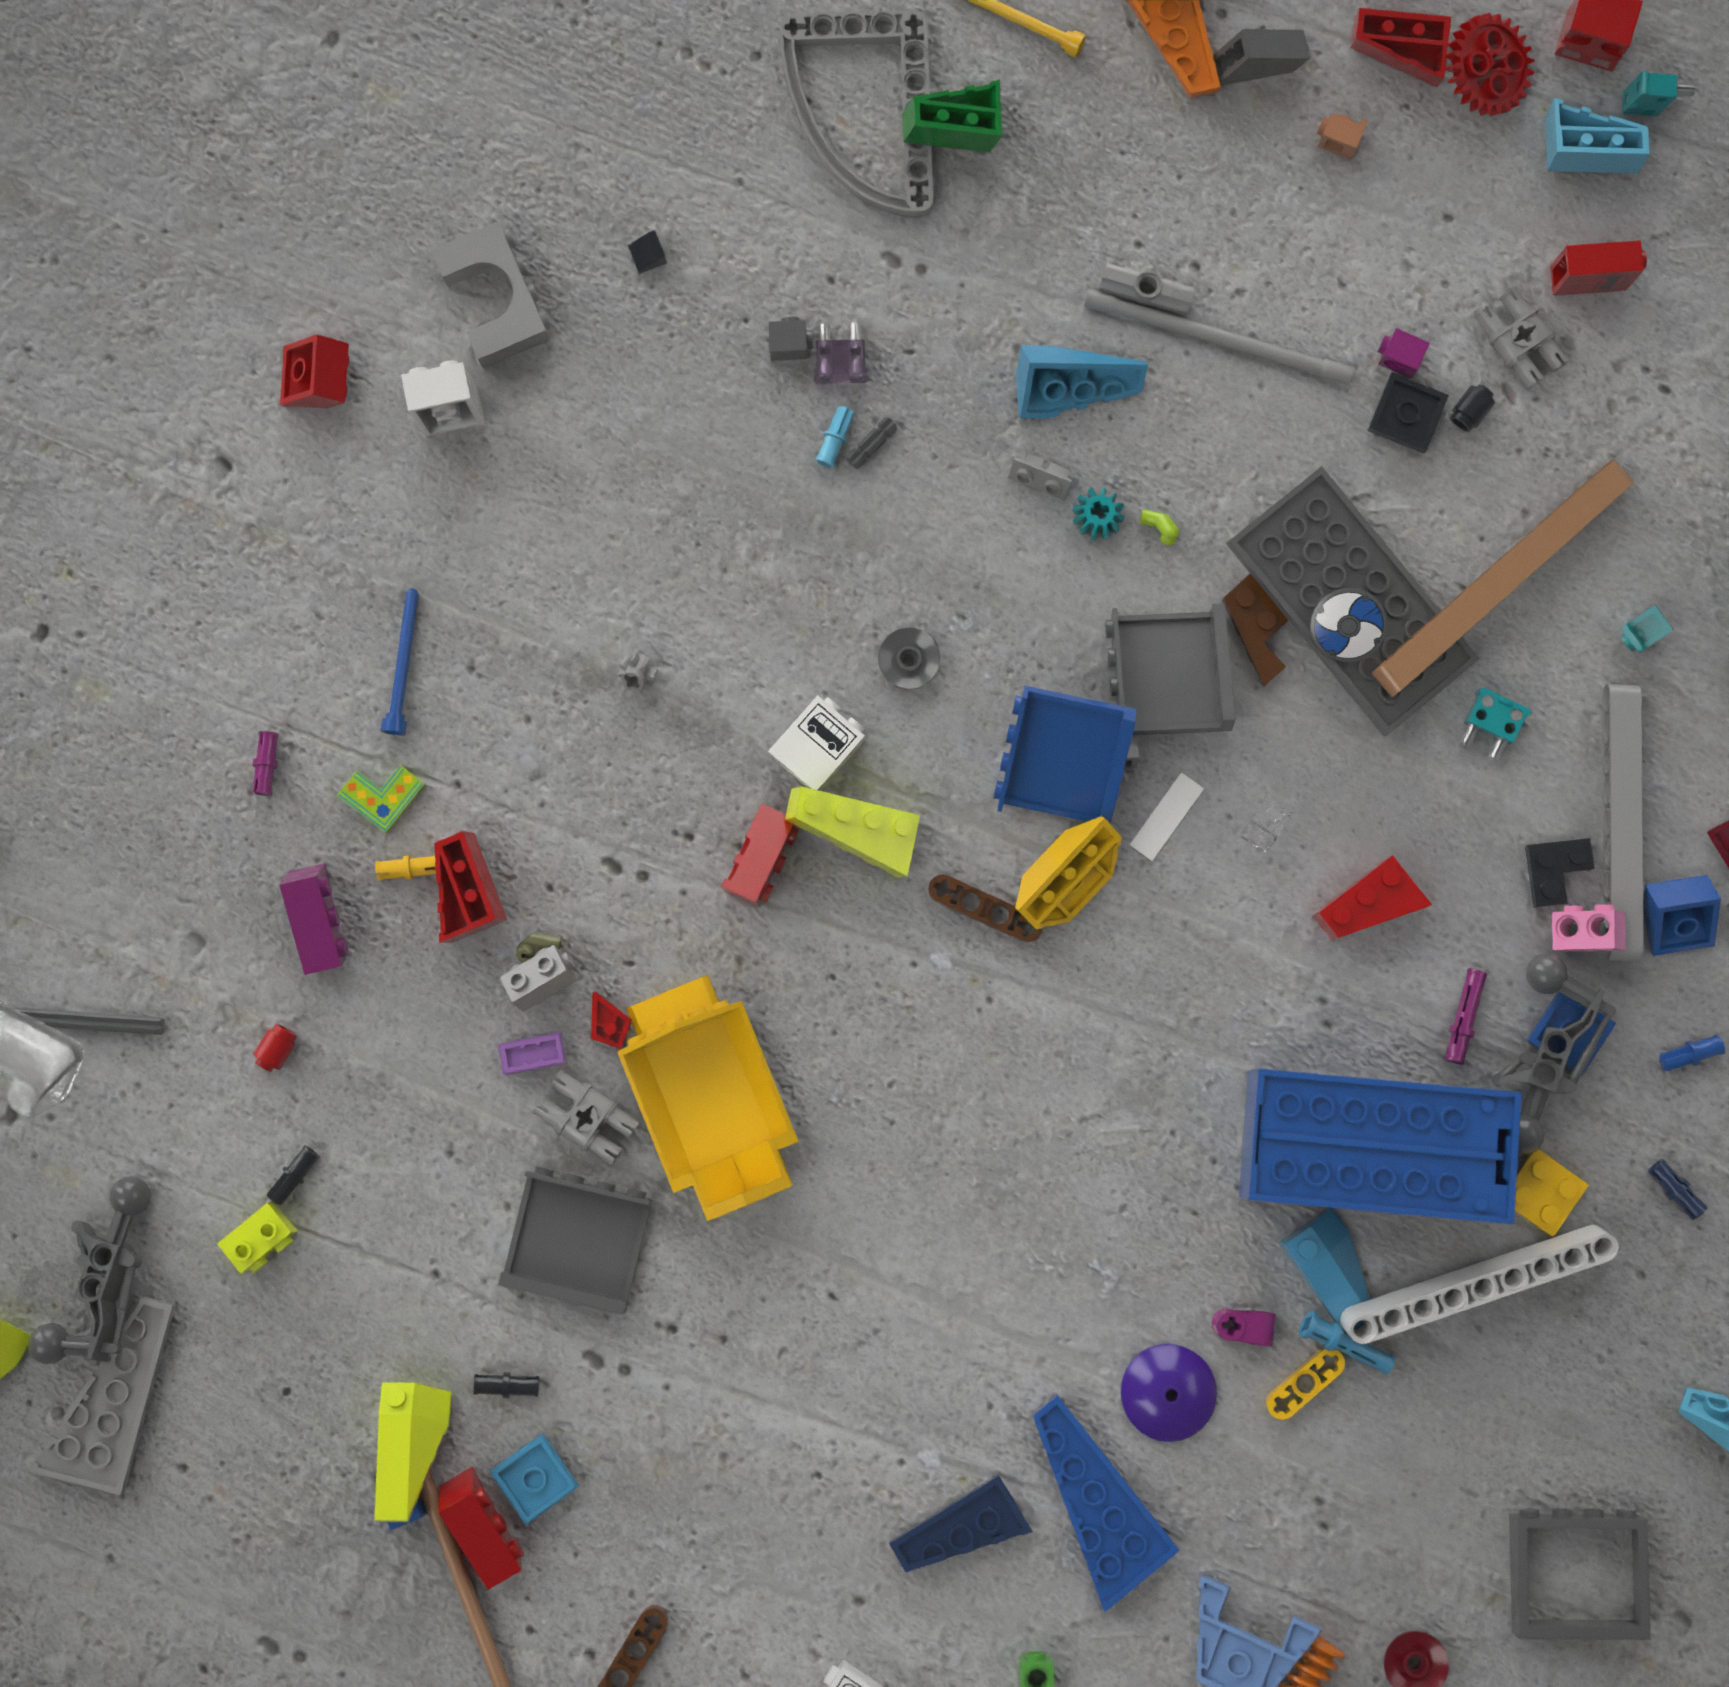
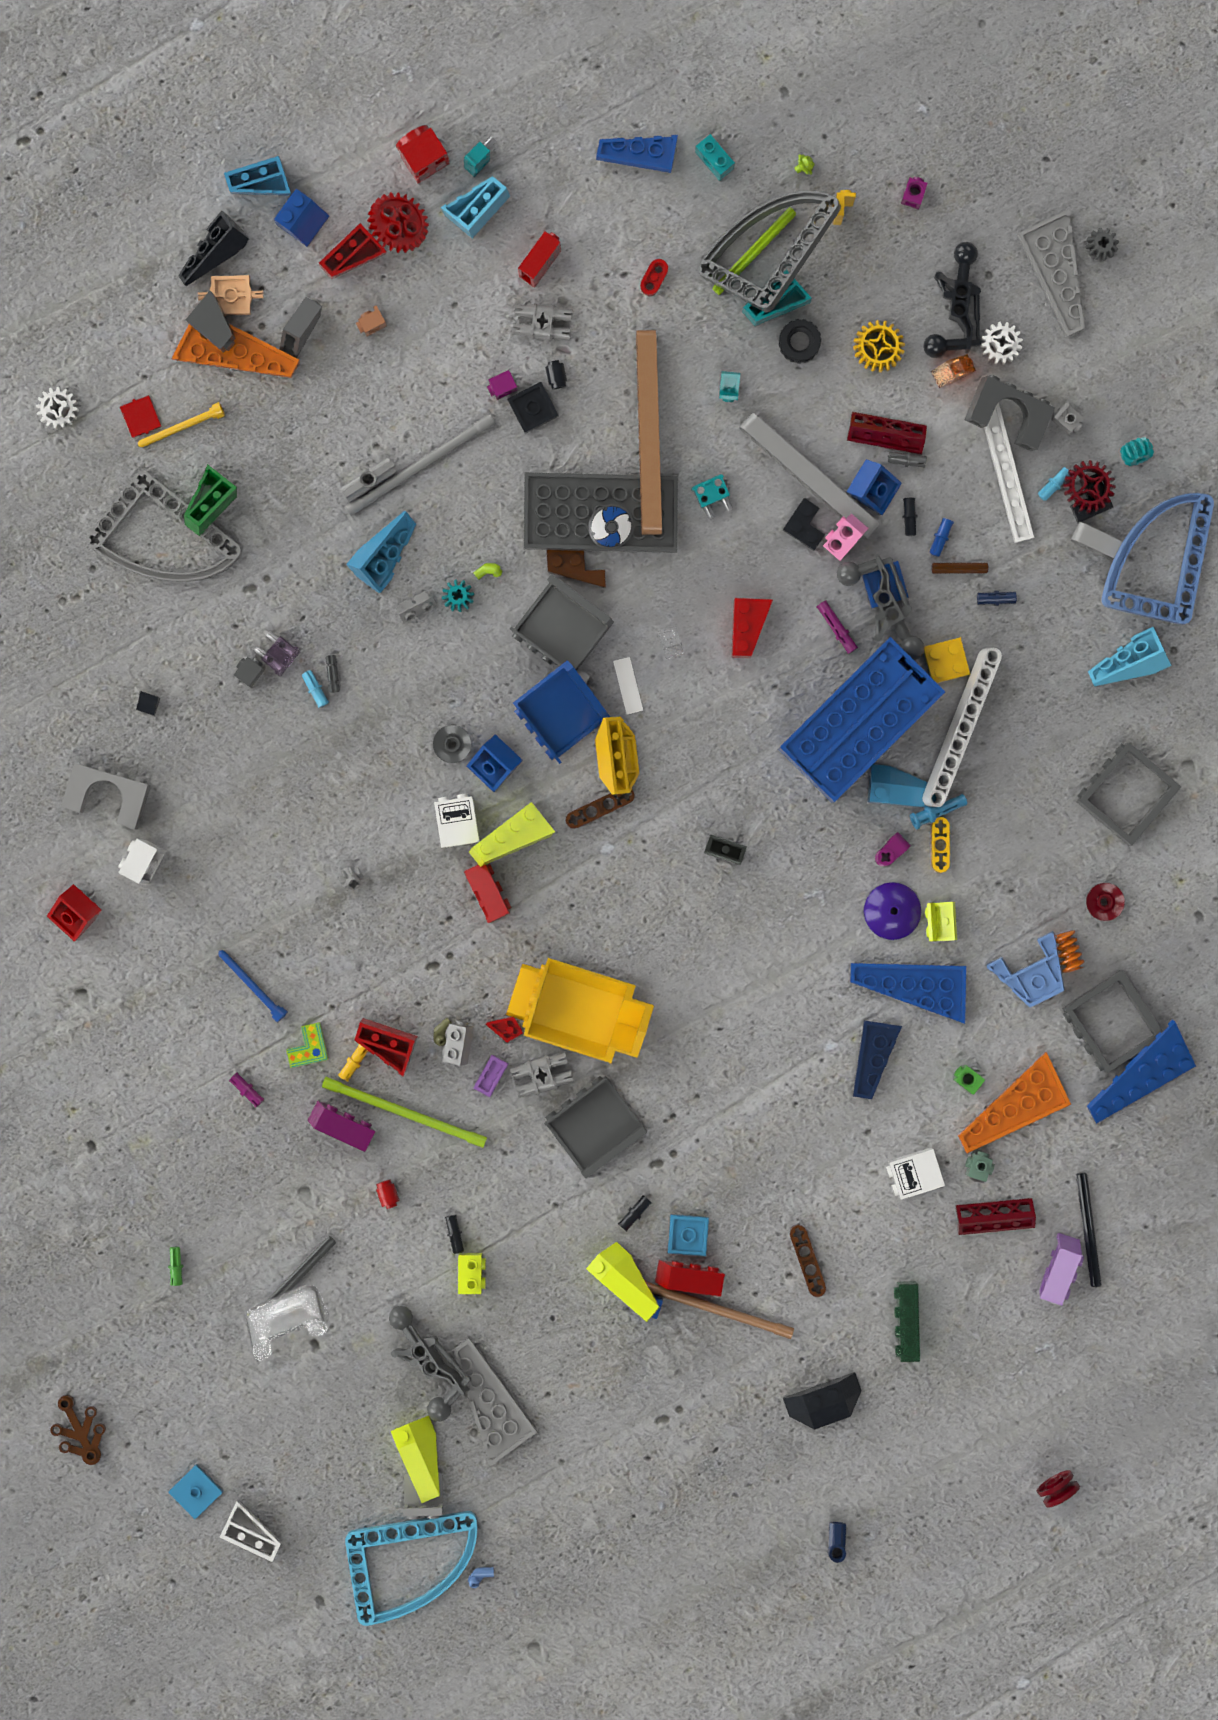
camera: 50 degrees left, 5 degrees up
(432, 1090) = (339, 1087): none -> lime piece
(930, 730) = (494, 763): none -> blue slope
(1066, 1111) = (725, 849): none -> pearl dark grey brick
(1209, 1468) = (941, 921): none -> neon yellow bracket
(1674, 1110) = (959, 568): none -> reddish brown axle
(1682, 991) = (909, 516): none -> black axle
(1694, 426) = (653, 277): none -> red plate

